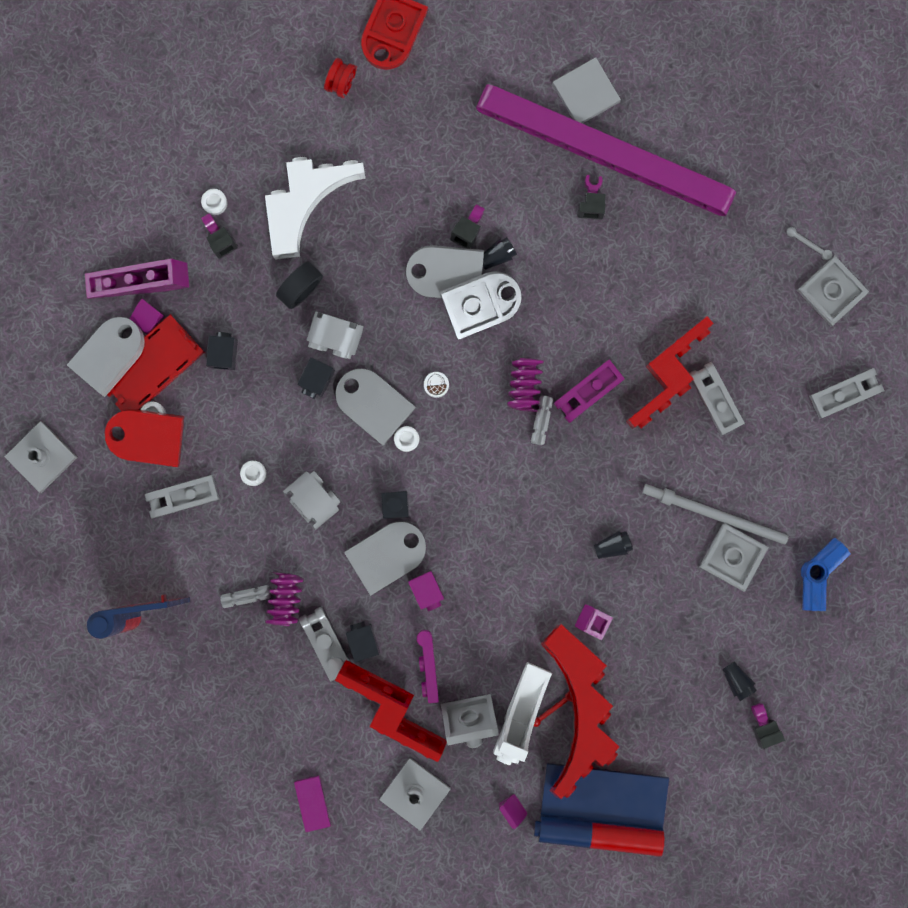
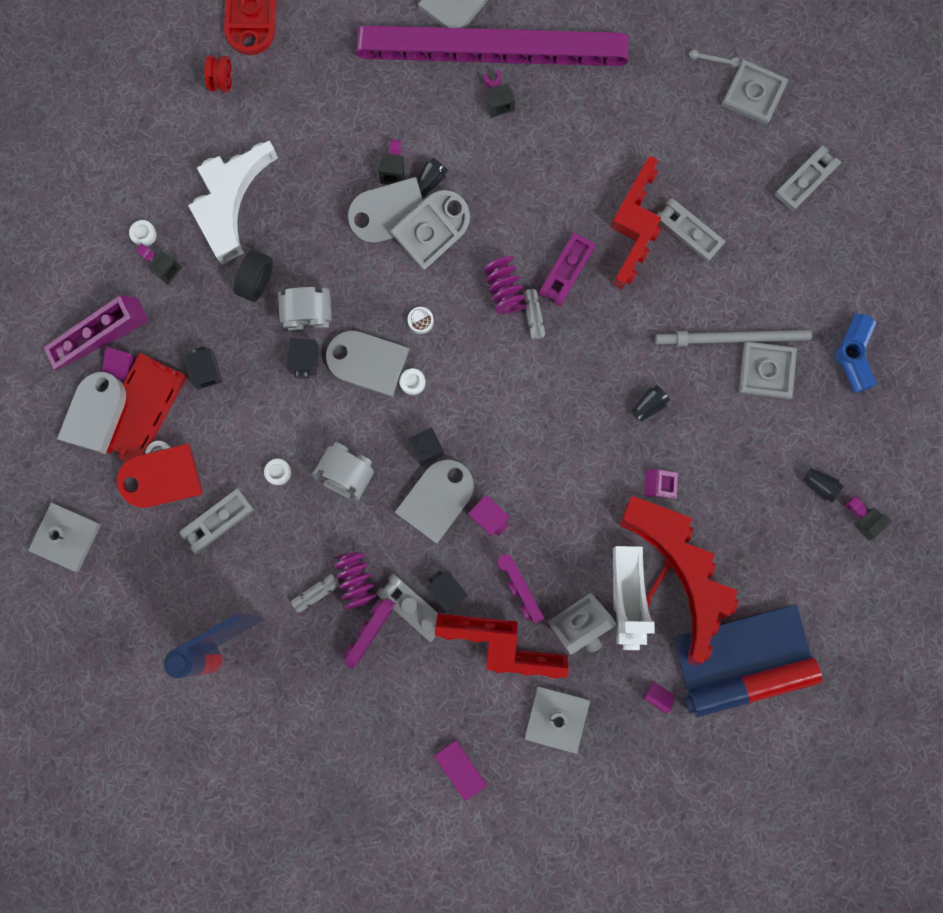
camera: 20 degrees left, 5 degrees down
(278, 651) = (368, 632): none -> magenta plate

